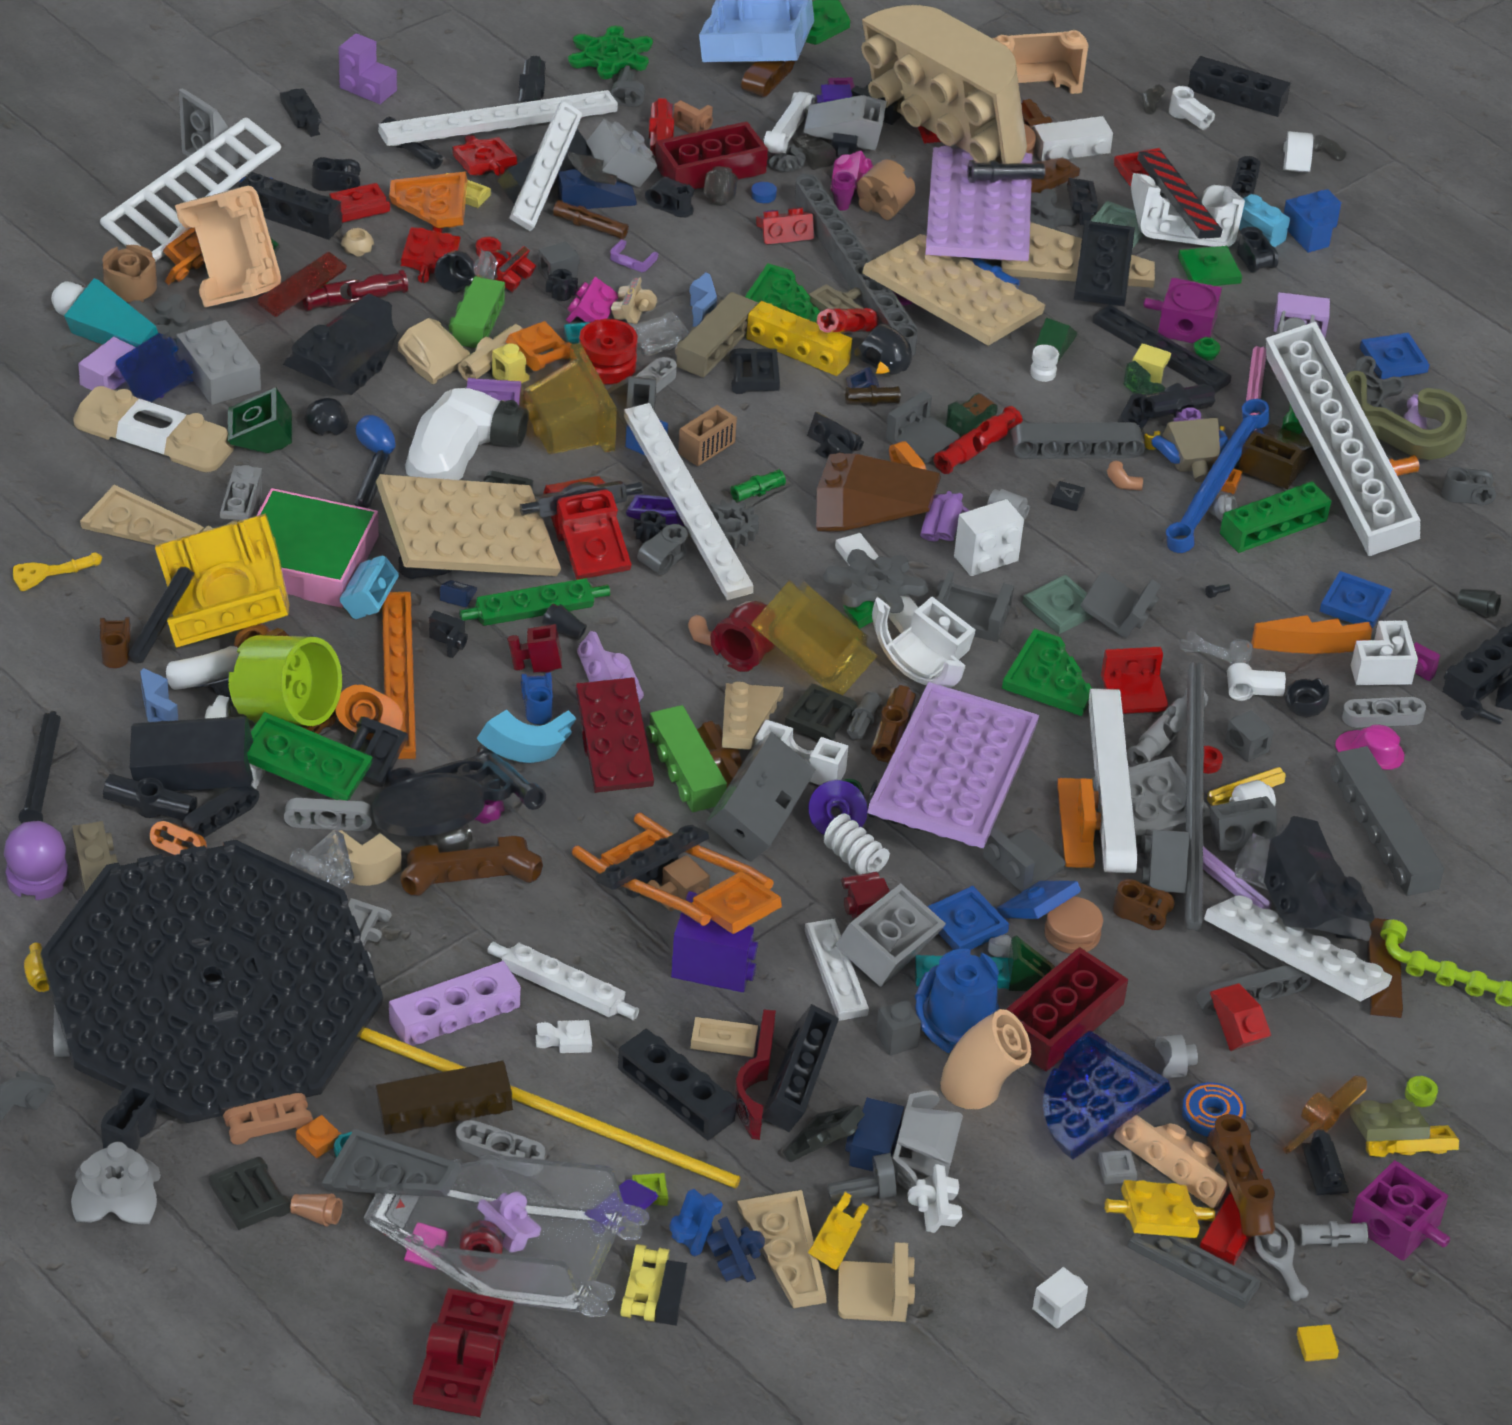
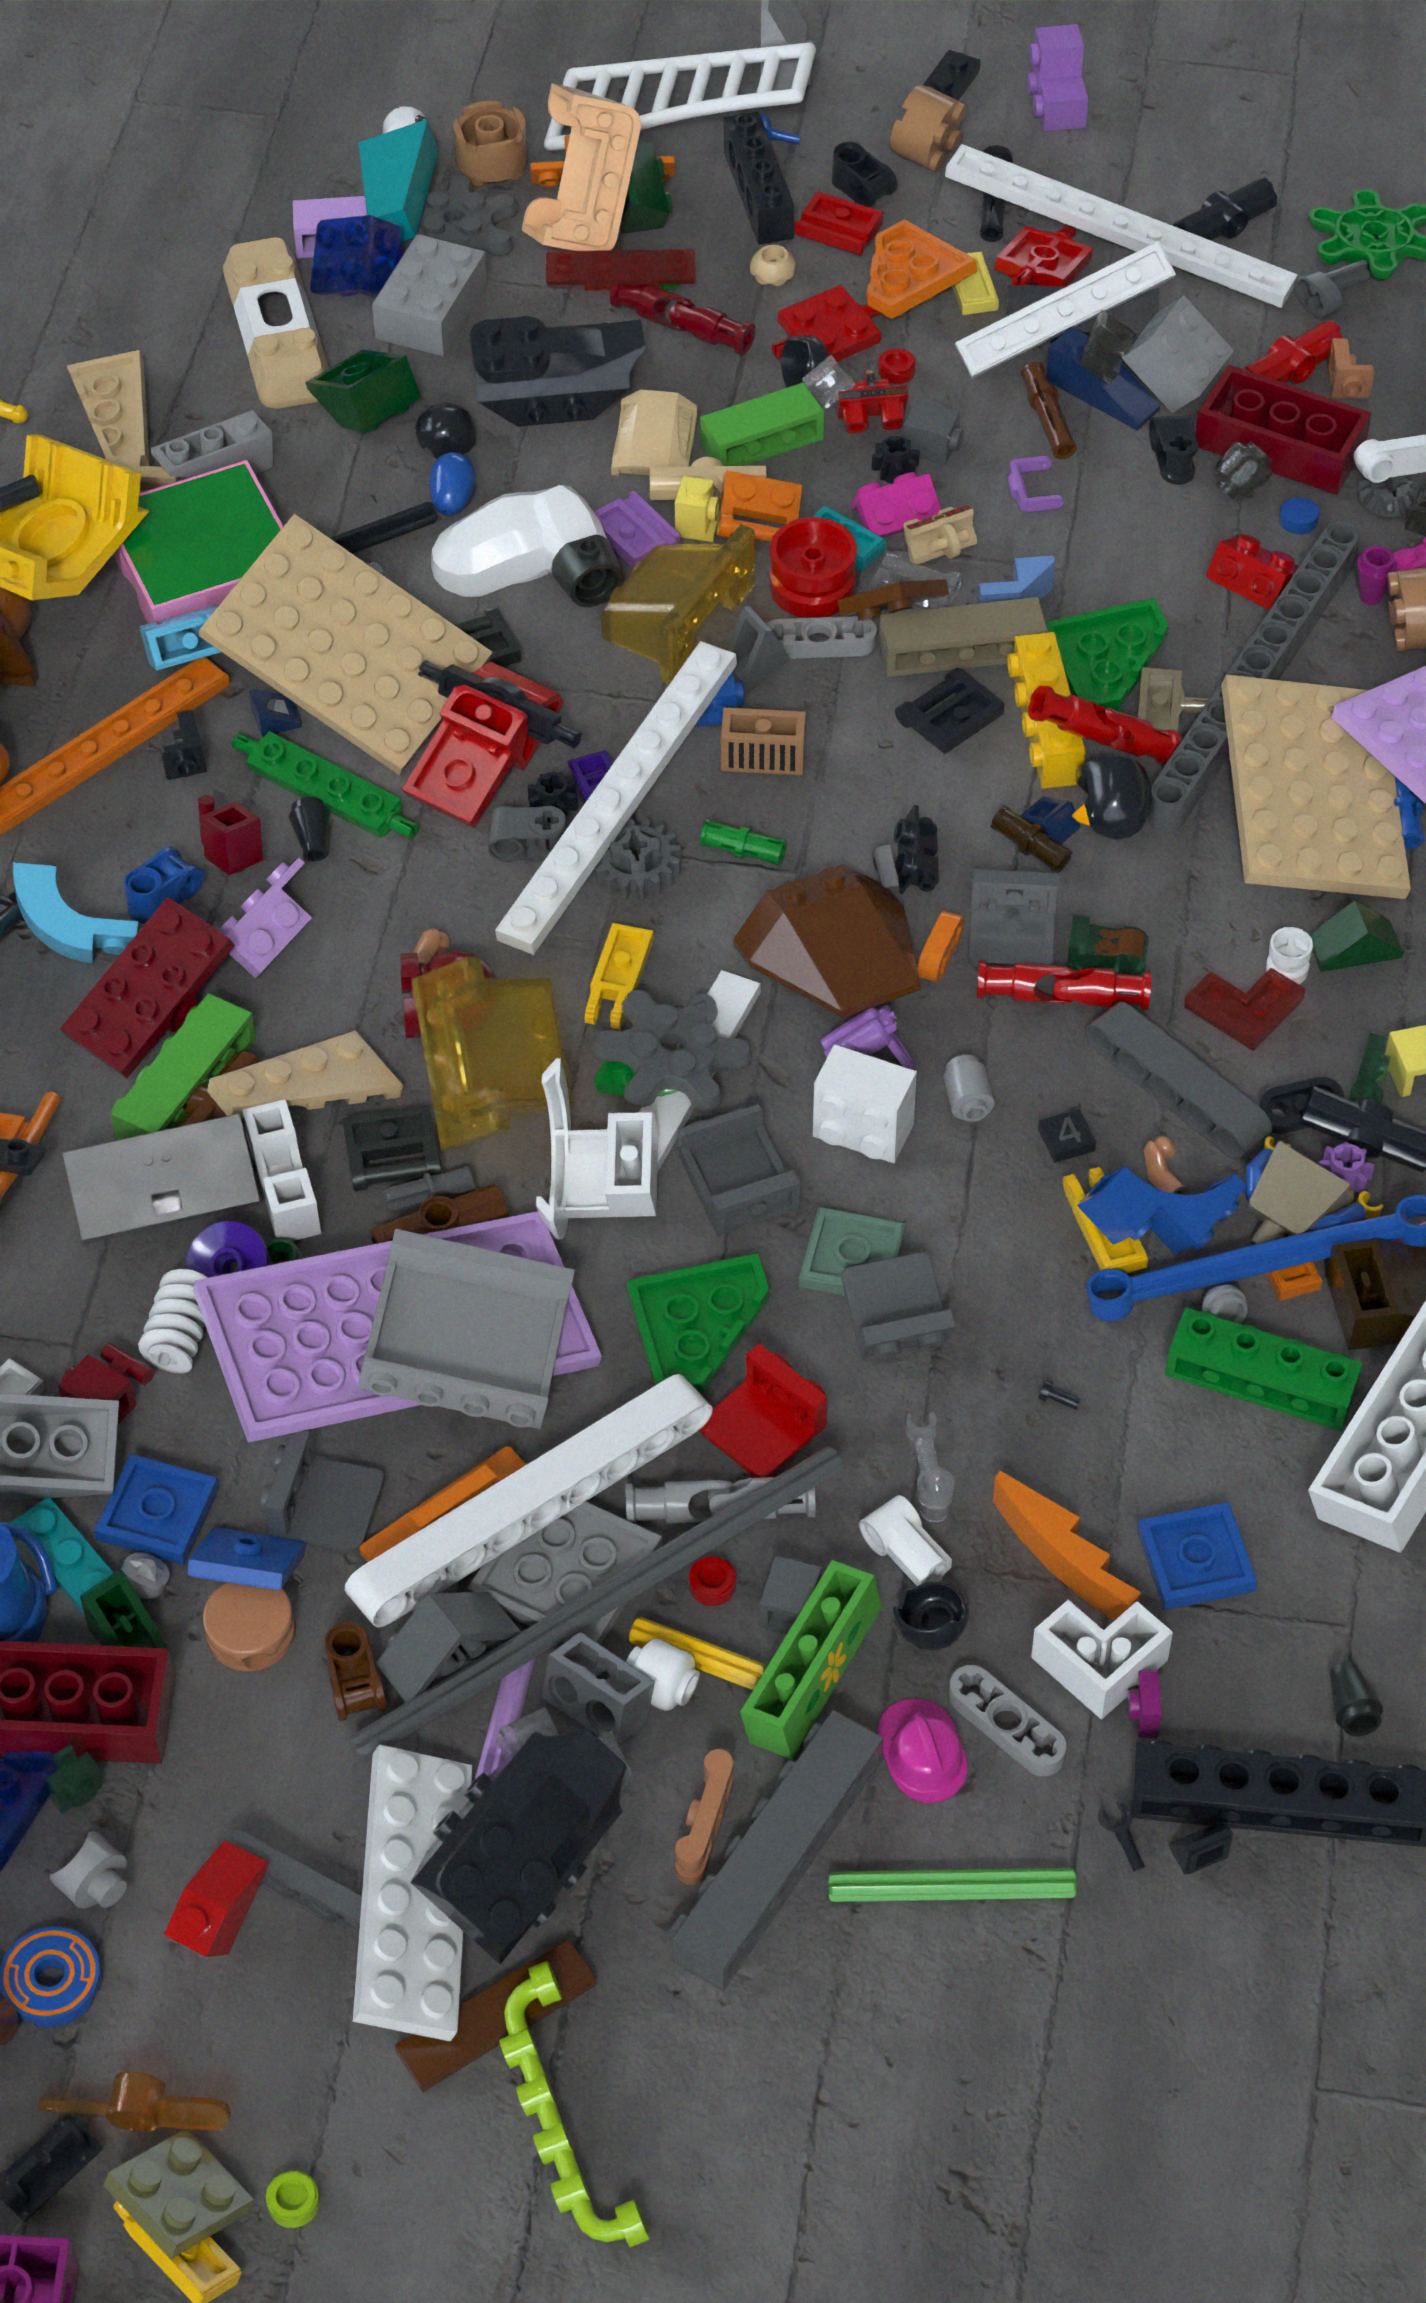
camera: 55 degrees right, 10 degrees up
(341, 129) = (928, 127): none -> medium nougat brick
(678, 330) = (893, 597): none -> reddish brown wing
(791, 567) = (618, 971): none -> yellow hinge
(988, 738) = (466, 1329): none -> light grey panel
(1059, 397) = (1247, 1015): none -> clear red plate
(1114, 1027) = (75, 1780): none -> clear green plate
(1134, 513) = (1124, 1255): none -> yellow hinge
(1157, 487) = (1129, 1207): none -> blue arch
(1298, 746) = (811, 1659): none -> bright green brick
(1346, 832) = (705, 1818): none -> nougat plate
(1455, 781) = (952, 1884): none -> bright green axle

